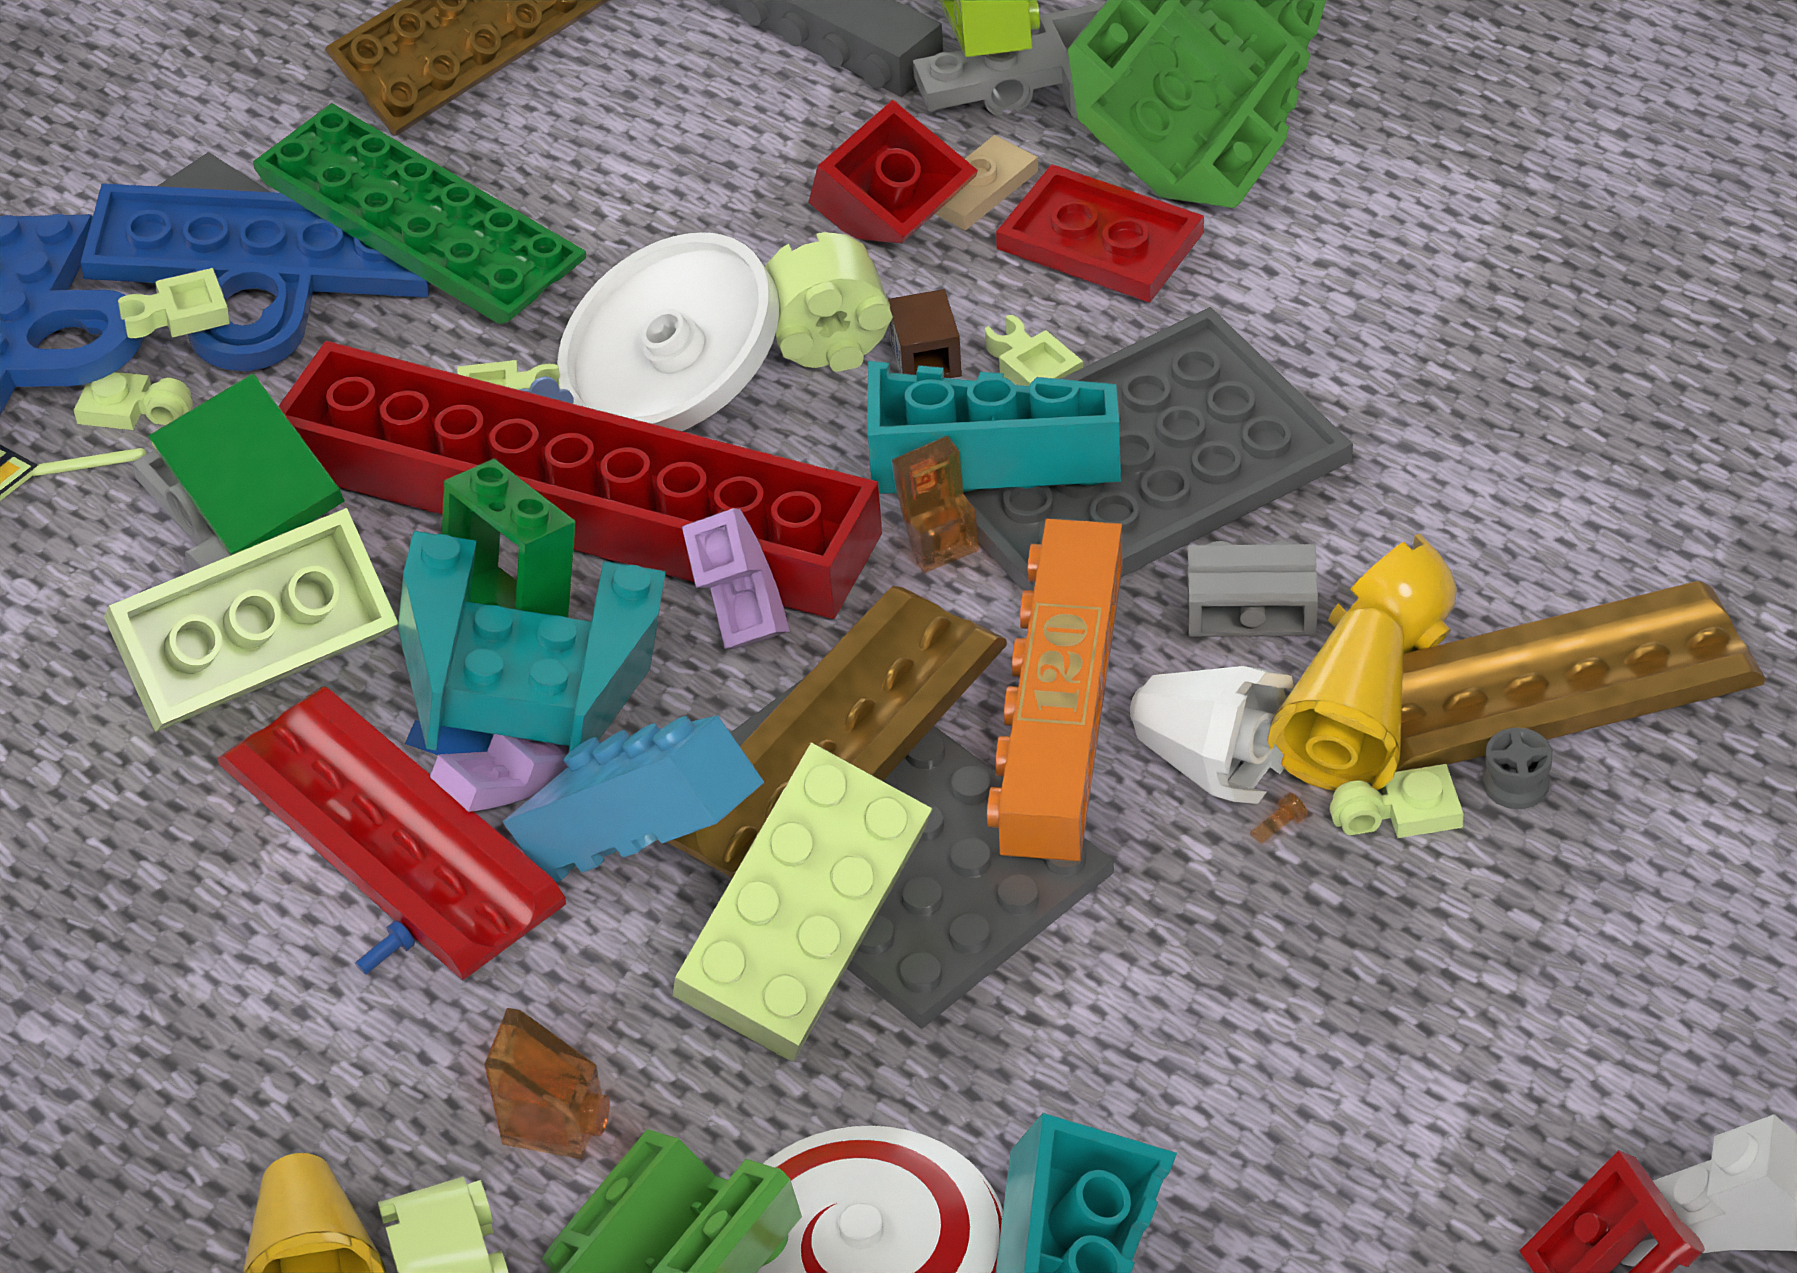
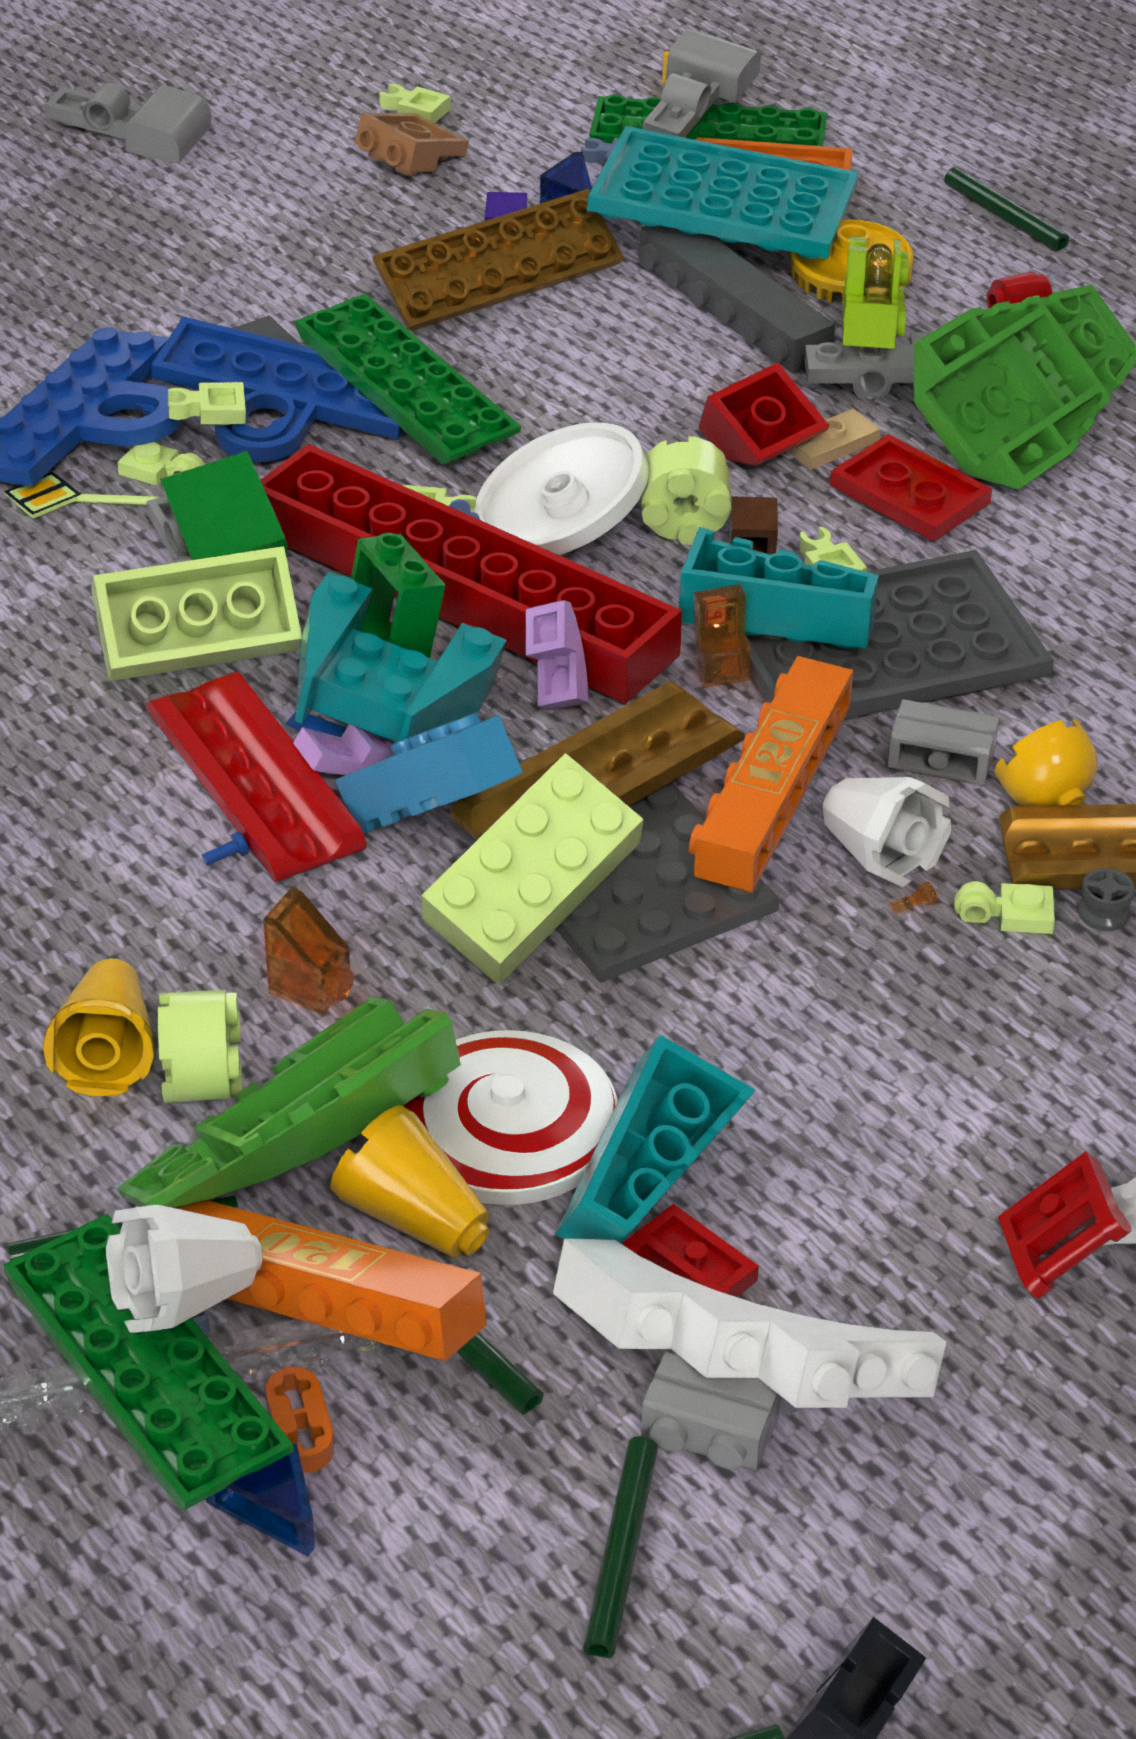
camera: 10 degrees right, 5 degrees down
(1346, 706) = (984, 827): yellow cone -> none

